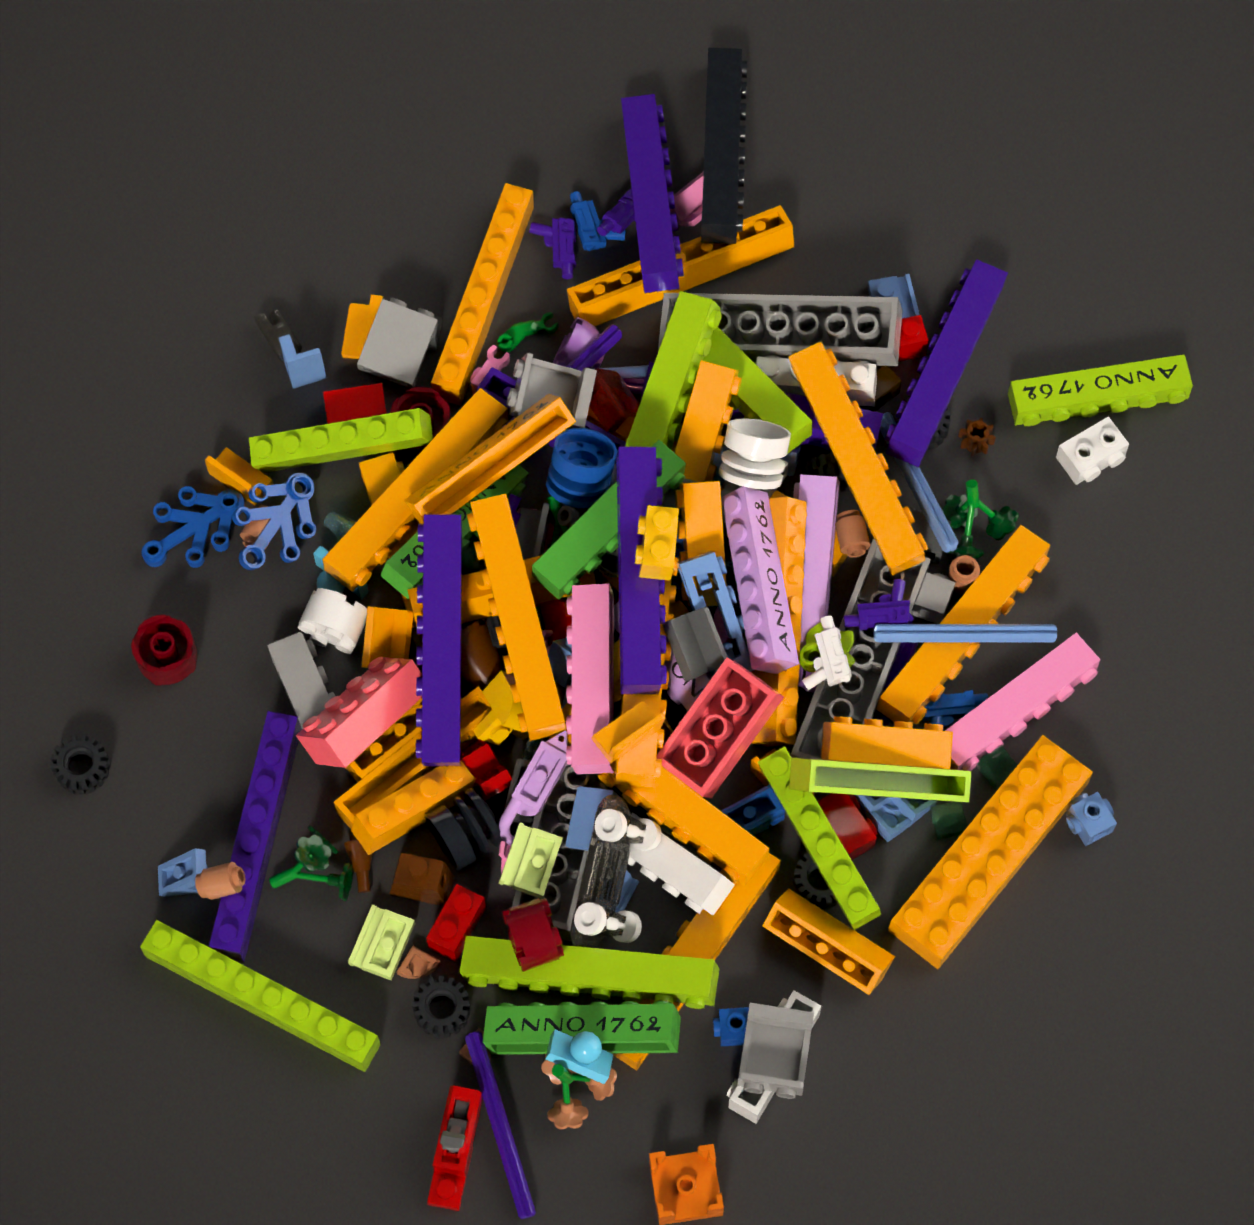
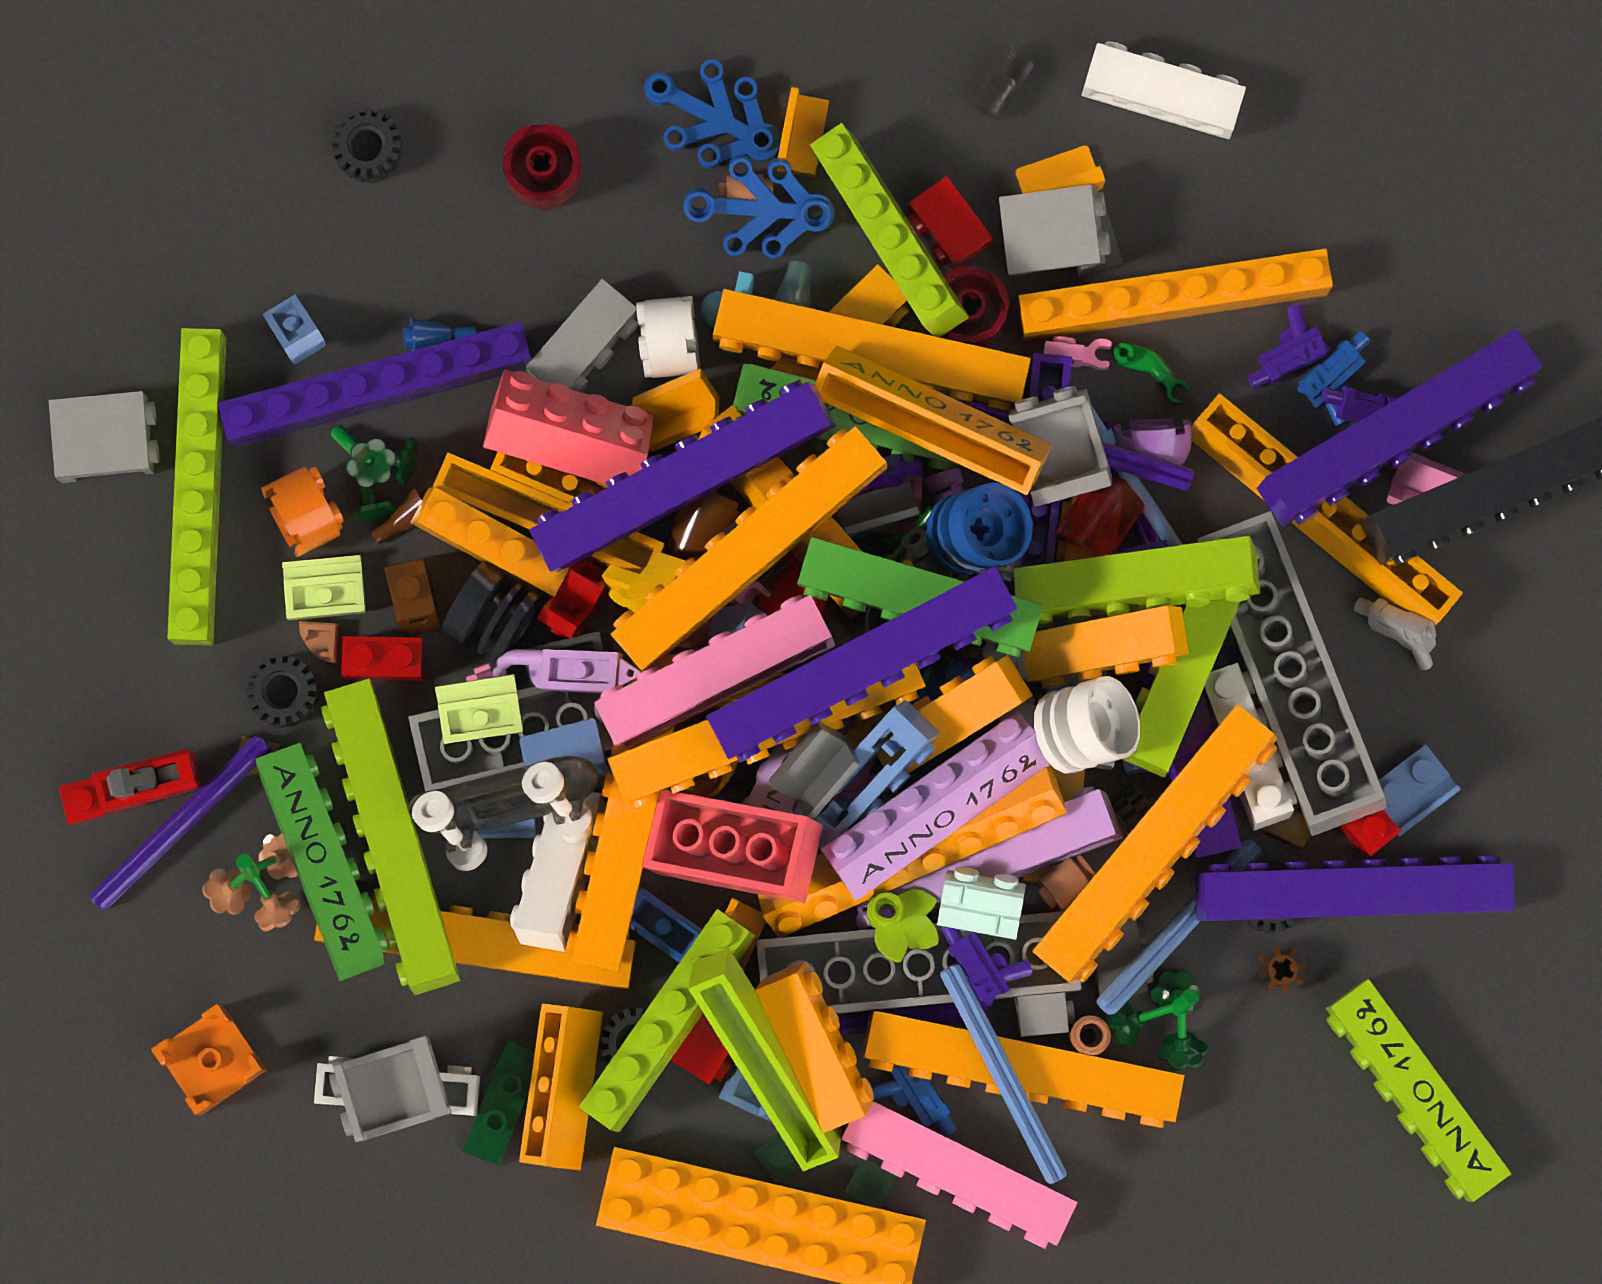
camera: 60 degrees right, 15 degrees up
(185, 1046) = (102, 435): none -> light grey panel
(220, 881) = (289, 377): nougat brick -> none
(237, 788) = (426, 333): none -> blue cone
(302, 367) = (962, 127): medium blue panel -> none
(319, 925) = (303, 511): none -> orange brick
(341, 235) = (1164, 90): none -> white brick
(531, 494) = (944, 481): none -> medium lavender wheel
(533, 934) = (388, 755): dark red brick -> none
(580, 1054) = (279, 875): medium azure tile -> none
(627, 731) = (660, 747): light orange panel -> none
(658, 542) = (890, 673): yellow brick -> none
(721, 1026) = (411, 1011): blue brick -> none
(786, 254) = (1407, 628): none -> light grey piece
(814, 984) = (501, 1105): none -> dark green plate
(833, 662) = (880, 937): white piece -> none
(840, 587) = (981, 902): none -> light aqua brick
(1092, 451) = (1331, 1118): white brick -> none

